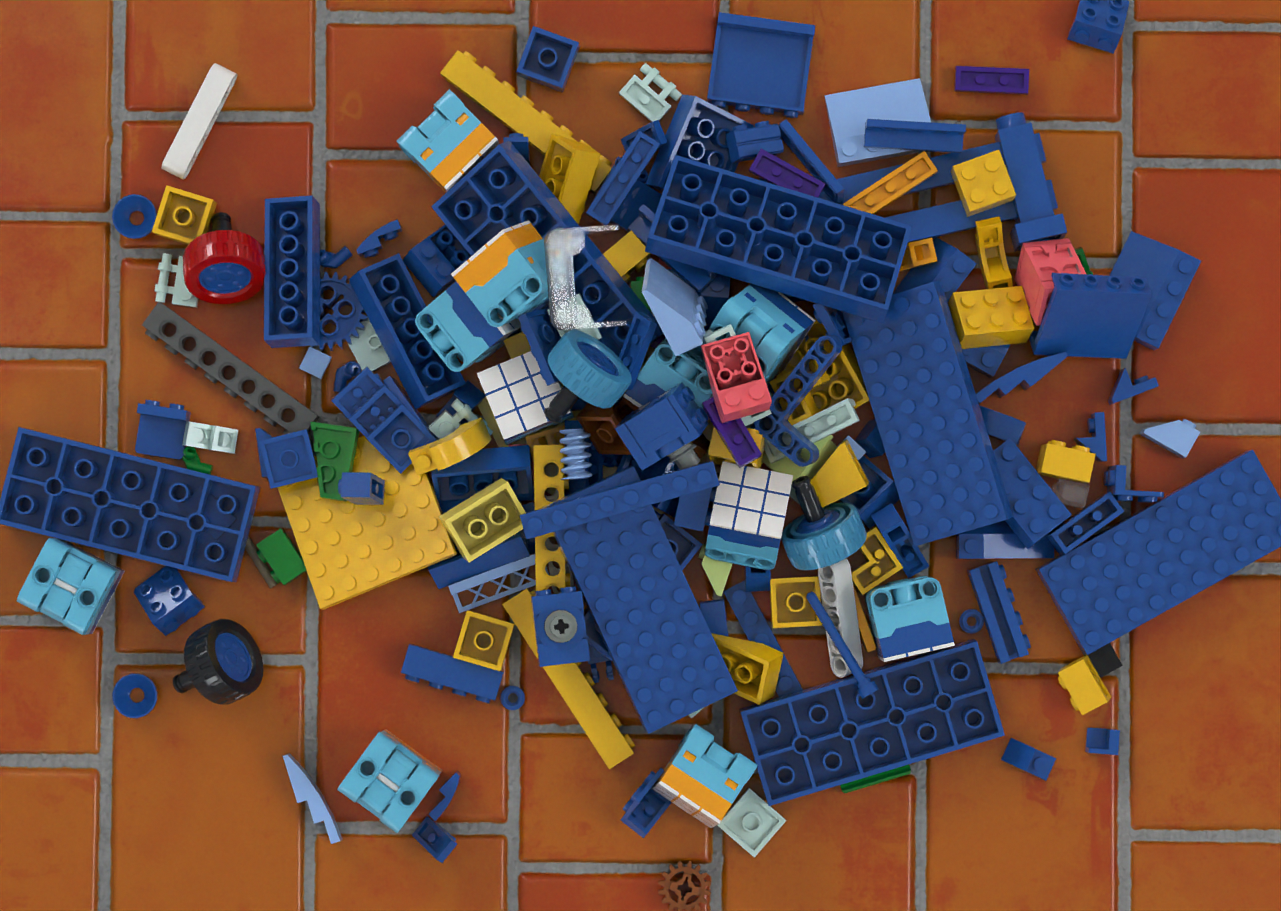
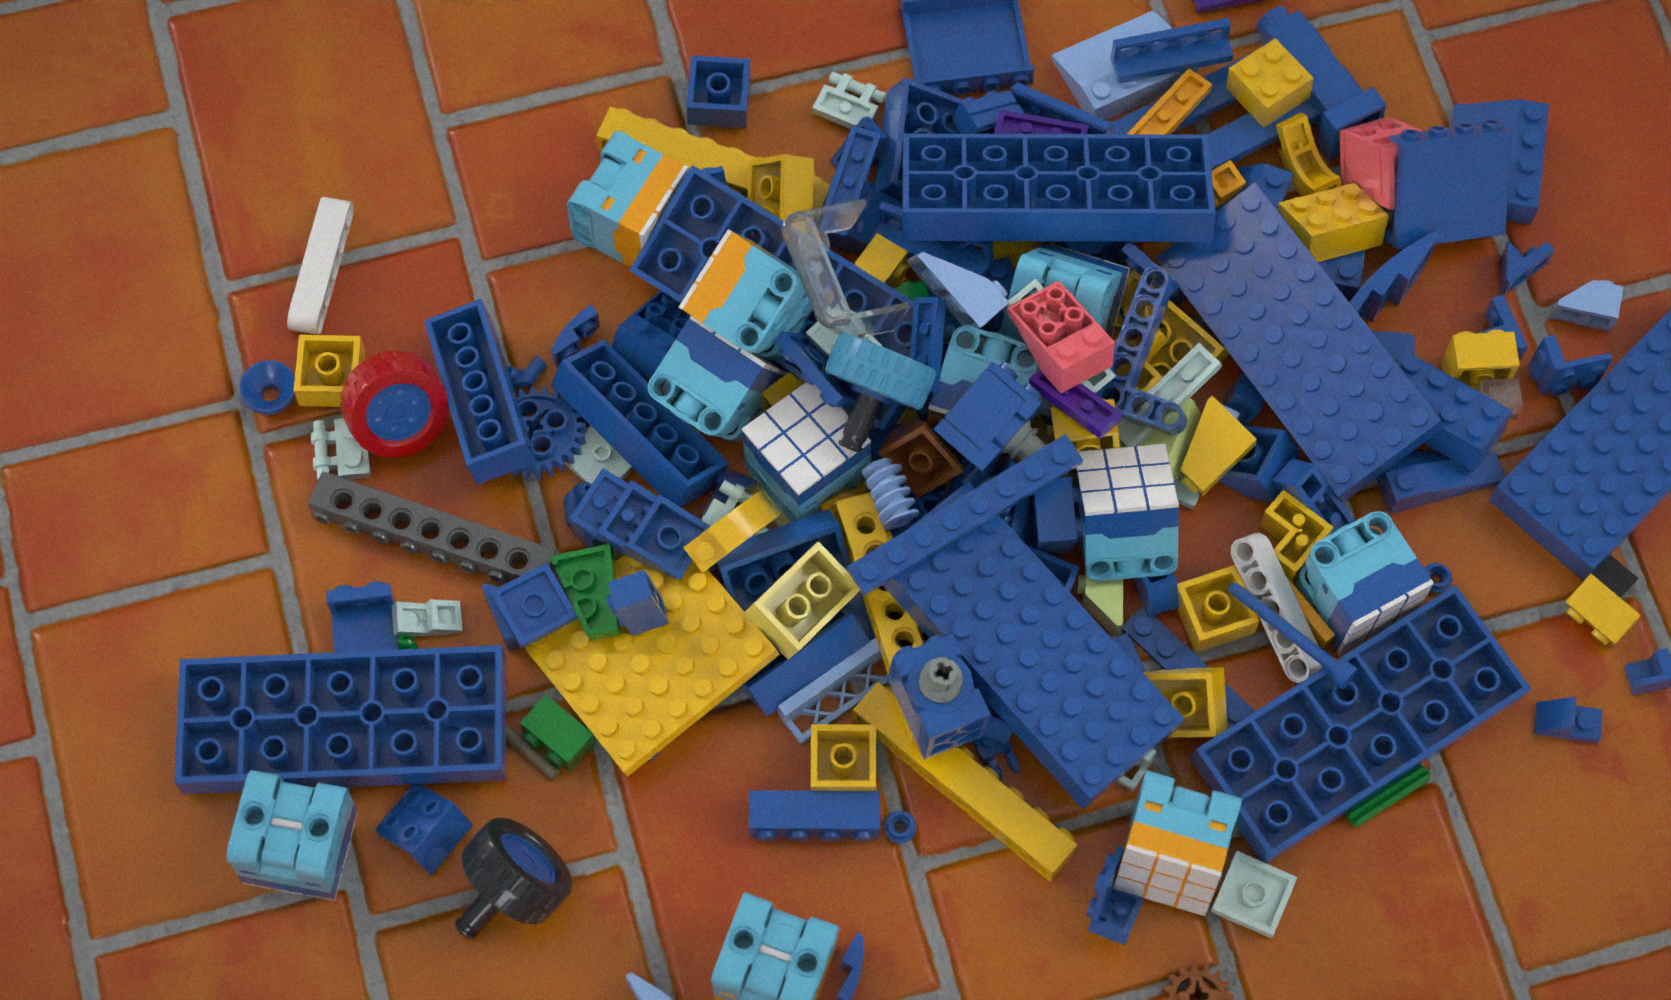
camera: 15 degrees left, 20 degrees down
(122, 698) = (401, 943): blue piece -> none
(315, 362) = (535, 498): light blue tile -> none
(821, 534) = (1222, 509): dark azure wheel -> none
(998, 612) = (1470, 561): blue brick -> none
(1085, 523) = (1529, 423): blue brick -> none

